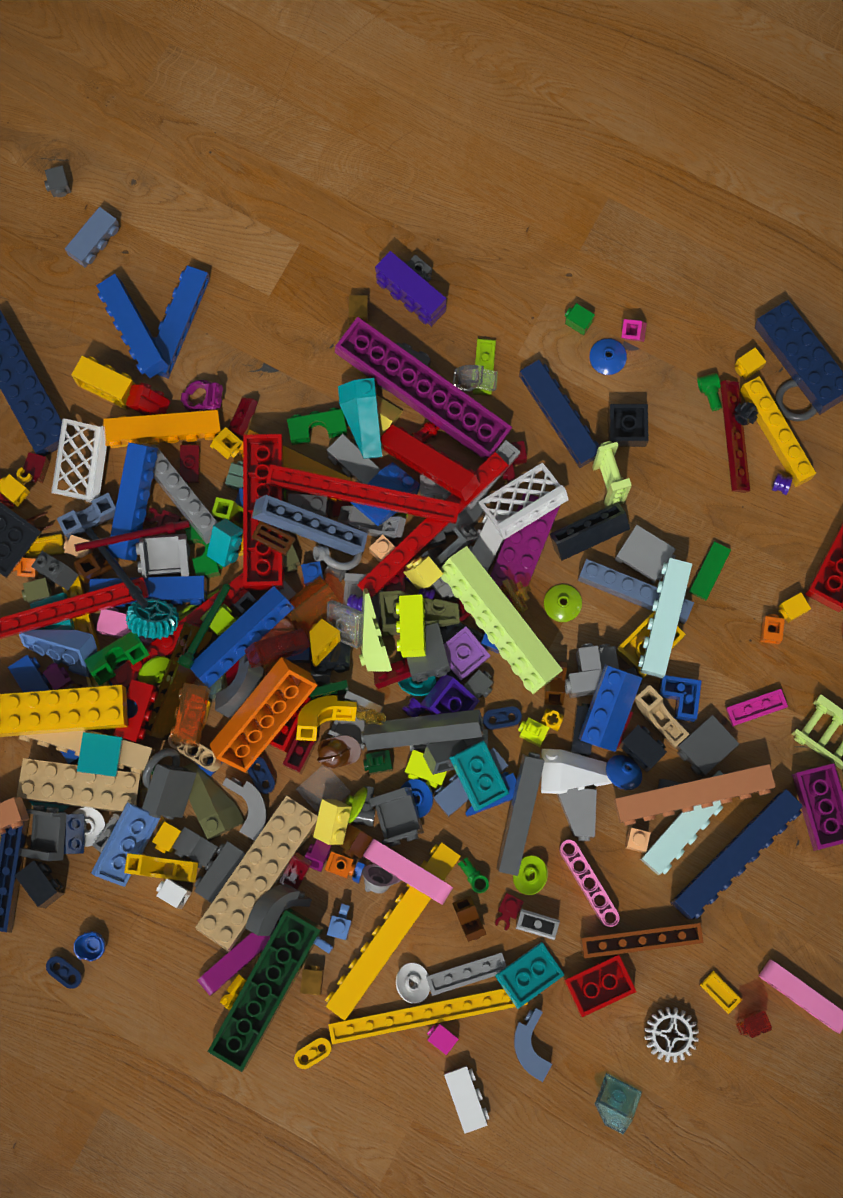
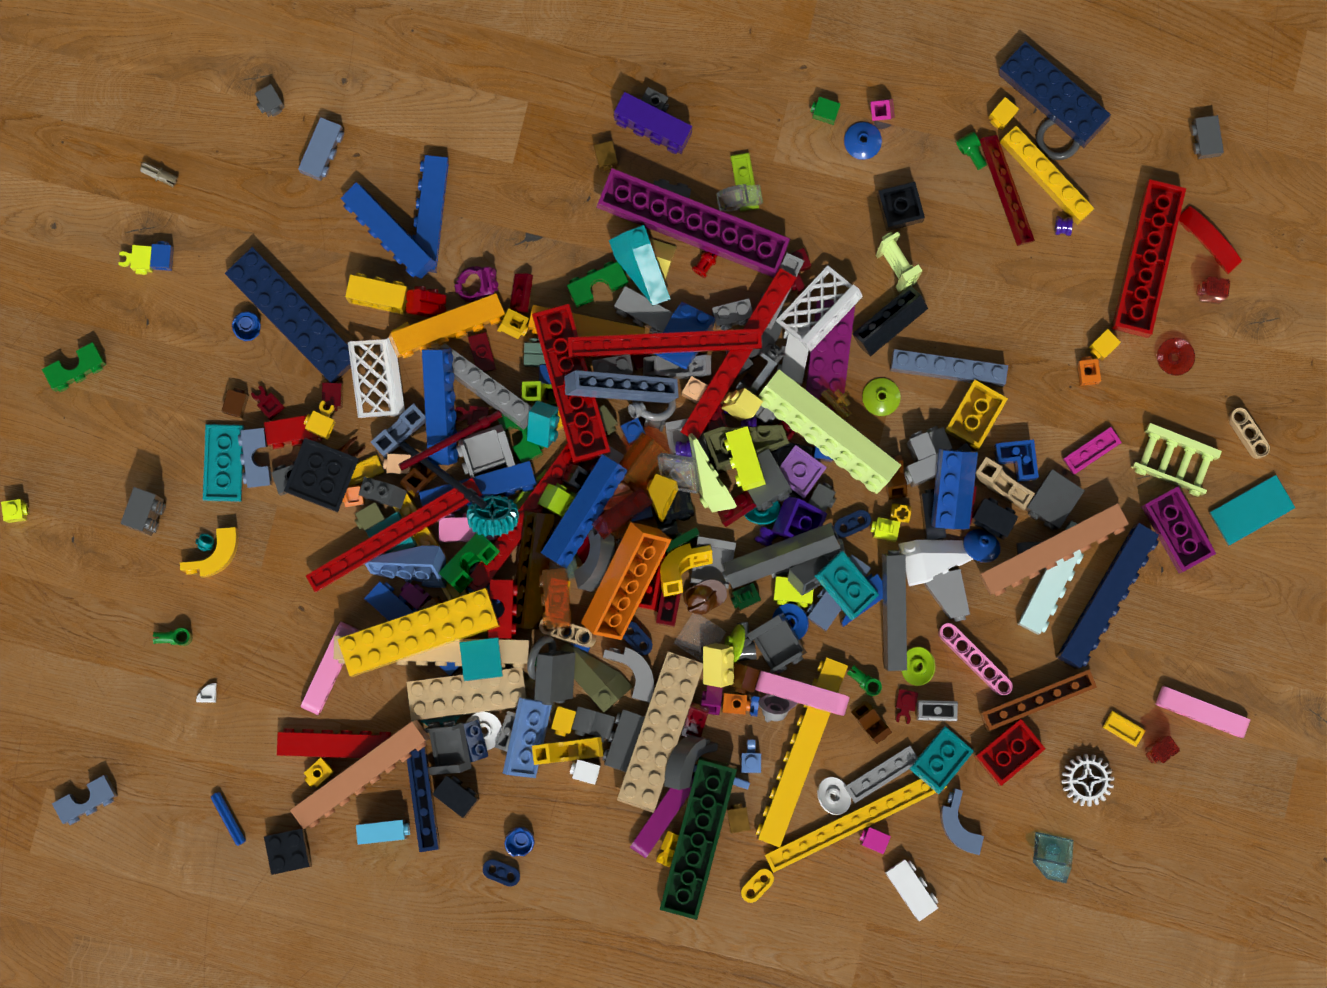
camera: 20 degrees left, 5 degrees up
(153, 670) = (507, 565): lime dish -> none
(186, 659) = (539, 546): dark green piece -> none
(287, 545) = (587, 415): reddish brown tile -> none
(370, 716) = (727, 555): clear yellow pin -> none
(429, 462) = (718, 293): red brick -> none
(559, 413) = (831, 211): dark blue brick -> none
(637, 840) = (1010, 606): light nougat brick -> none
(645, 553) = (950, 329): light grey panel -> none
(666, 617) = (985, 388): light aqua brick -> none
(710, 570) = (1015, 329): green tile -> none
(746, 413) = (1012, 166): black gear -> none

